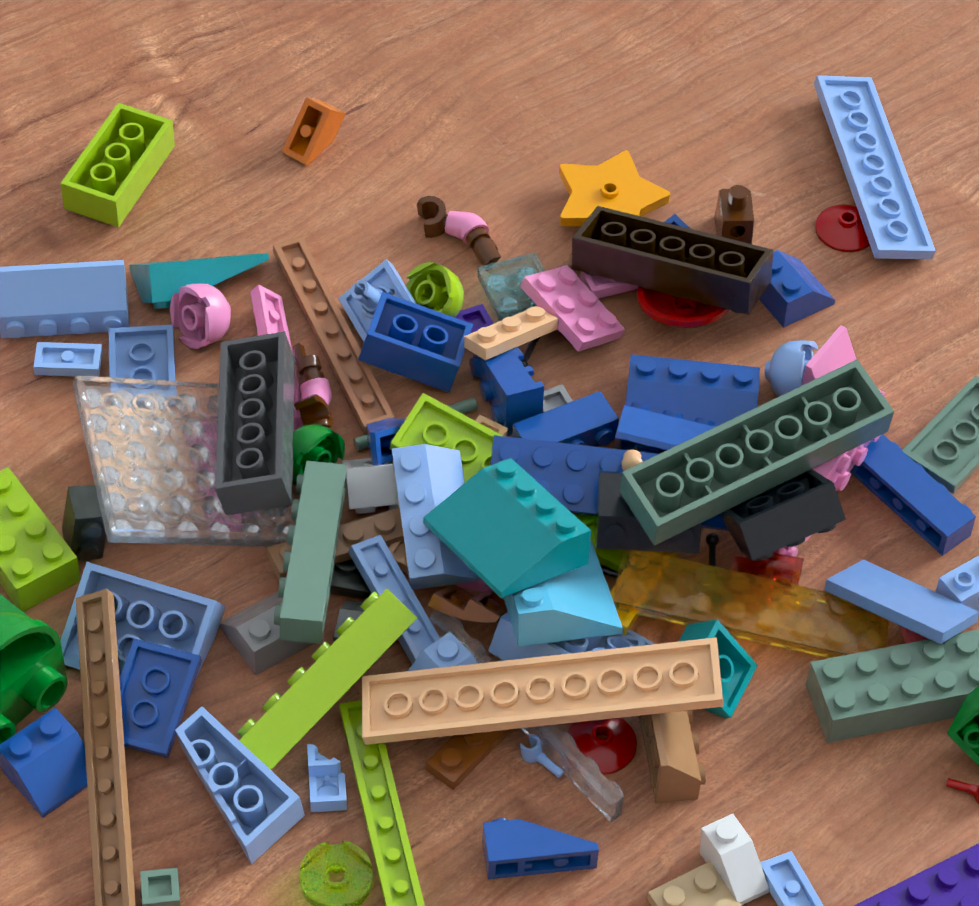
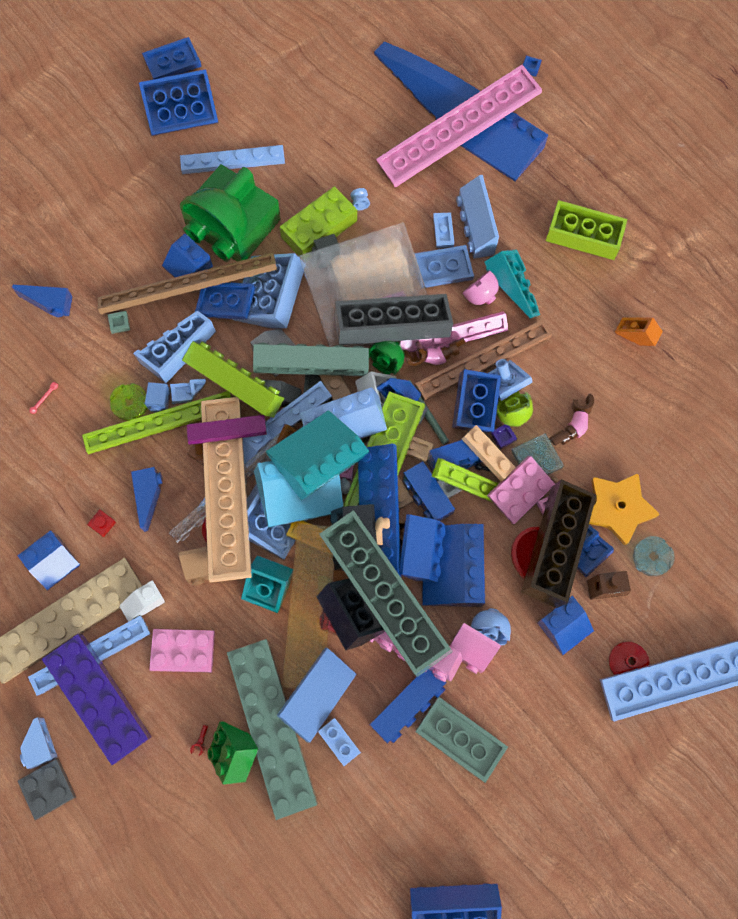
camera: 85 degrees right, 20 degrees up
(335, 821) = (157, 397): none -> medium blue brick
(432, 686) = (226, 429): none -> magenta tile
(555, 366) = (463, 479): none -> lime tile
(699, 183) = (645, 564): none -> clear light blue plate
(820, 810) = (182, 650): none -> bright pink plate

